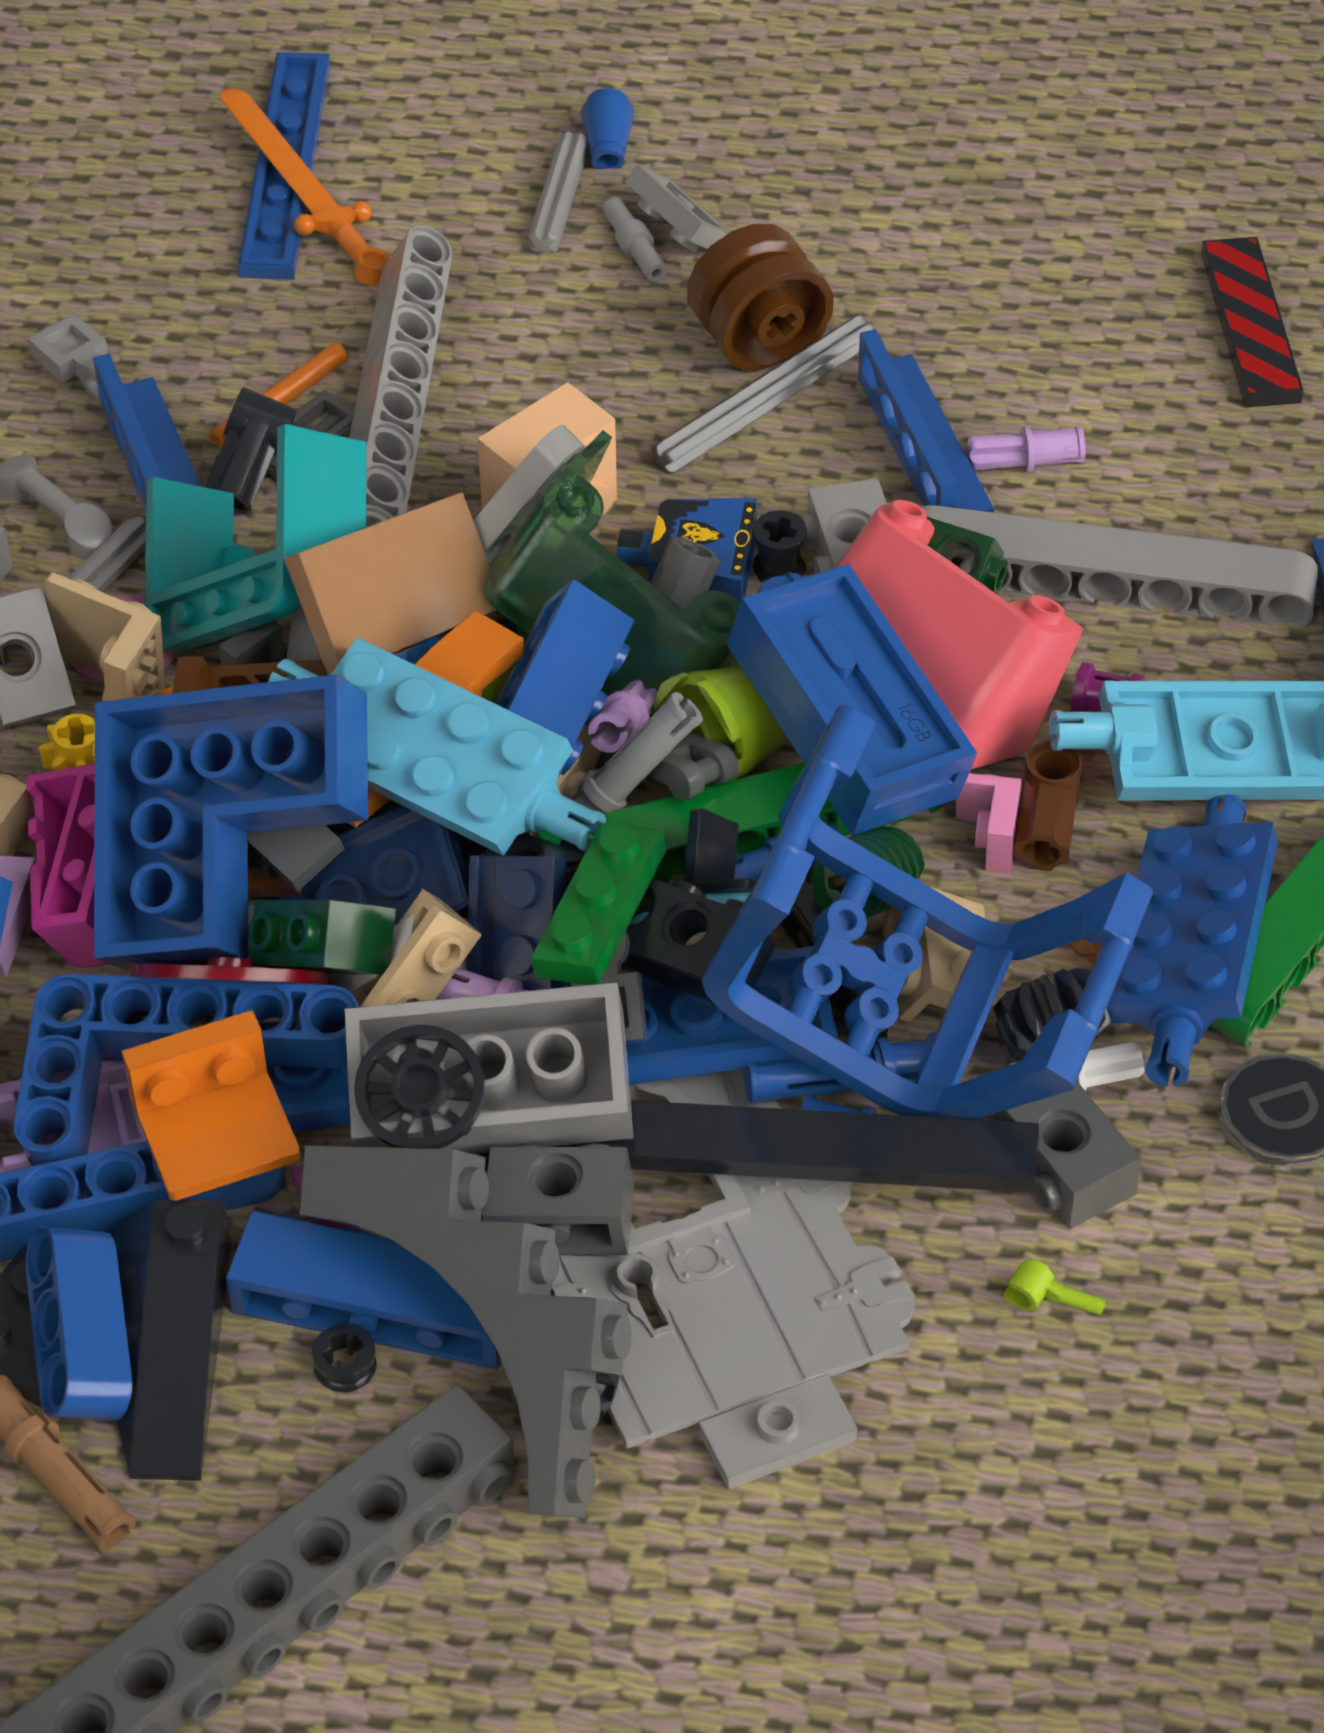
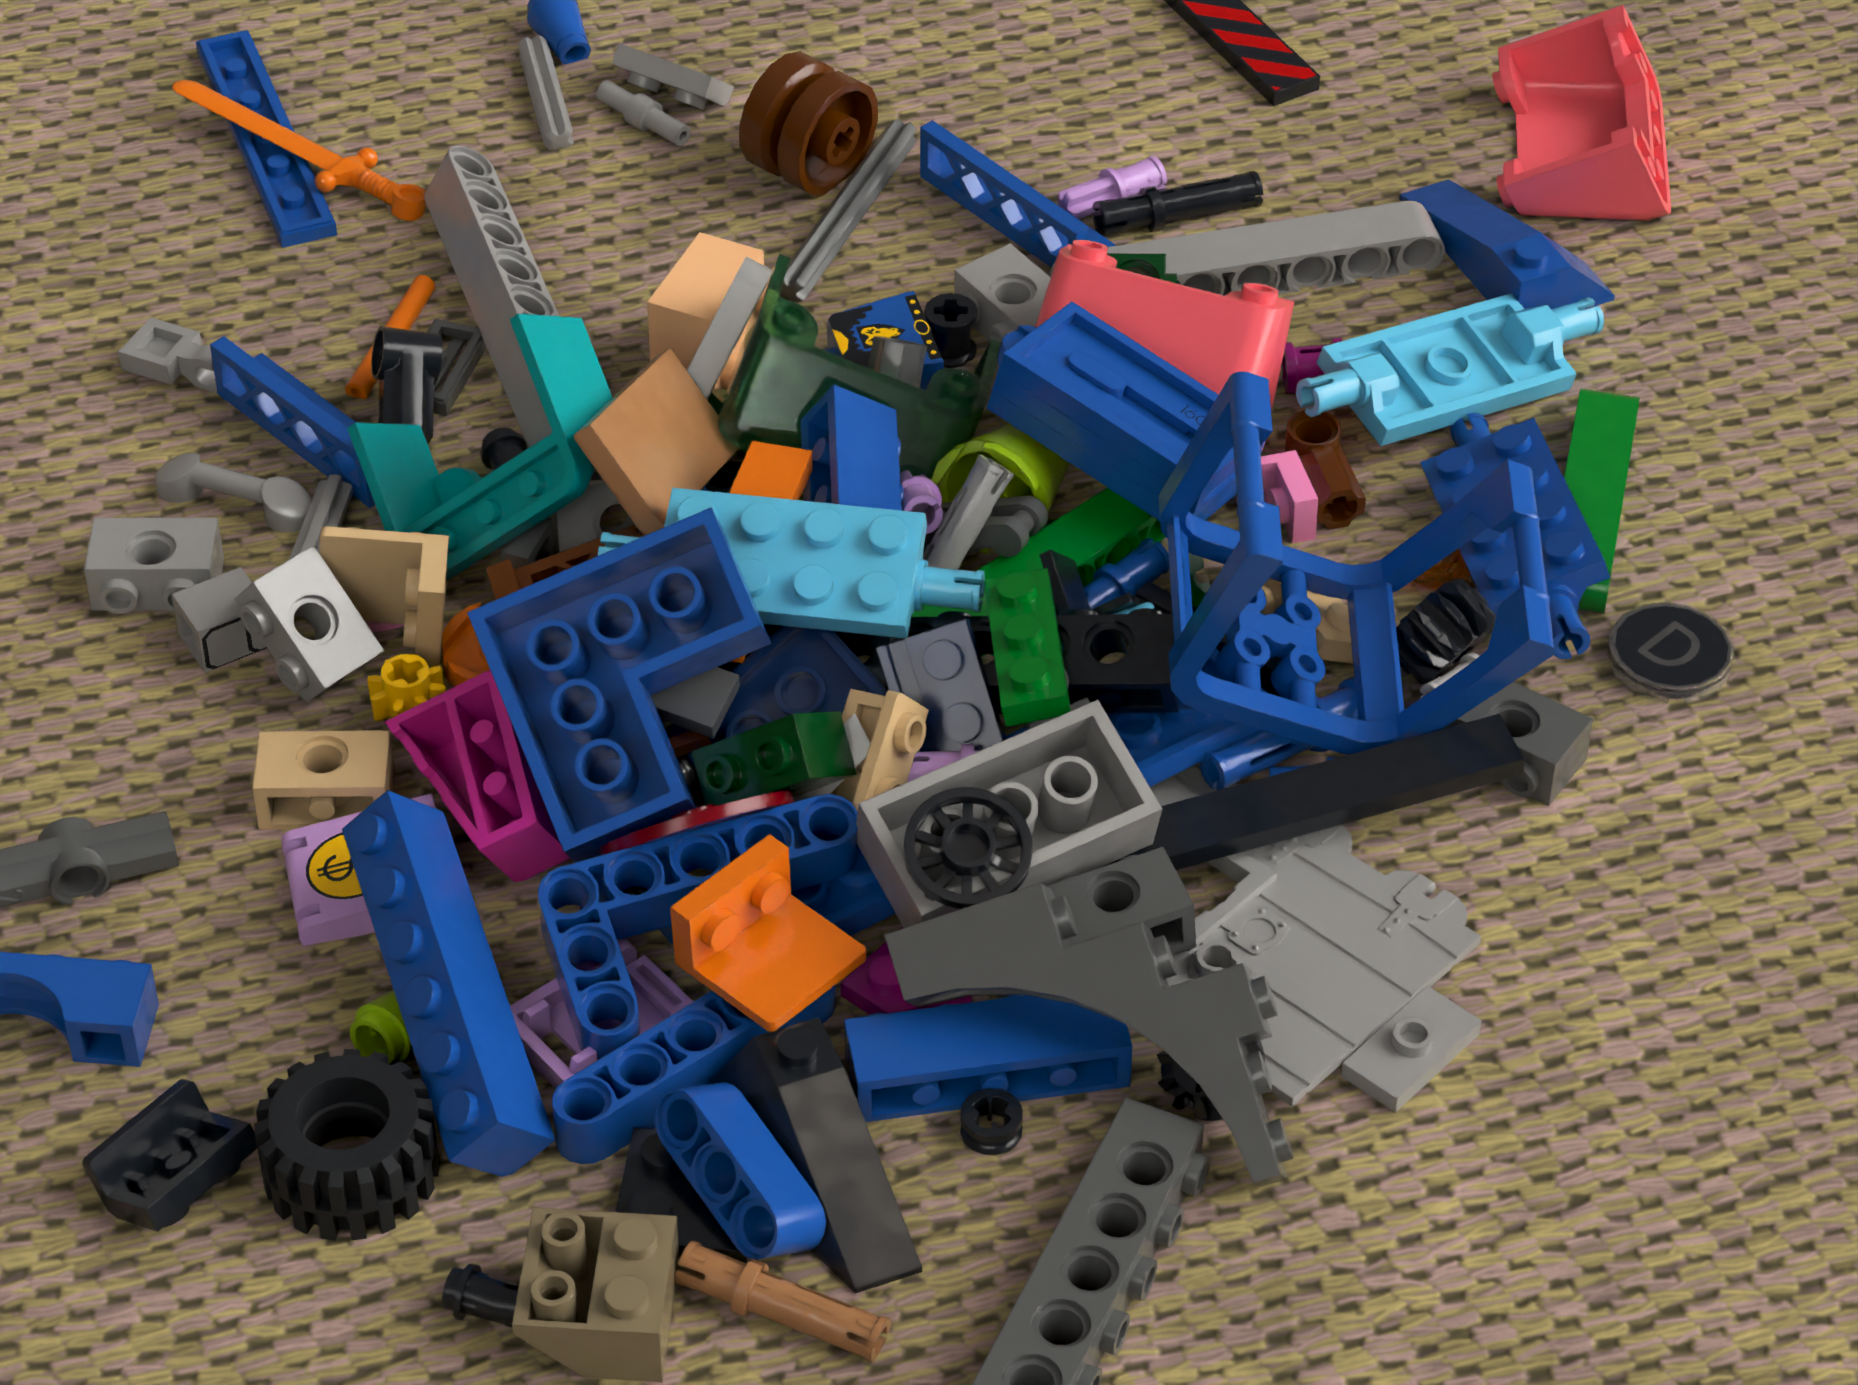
camera: 25 degrees left, 5 degrees down
(1036, 1281) = (1553, 856): lime hand -> none
(1080, 483) = (1160, 207): none -> black pin

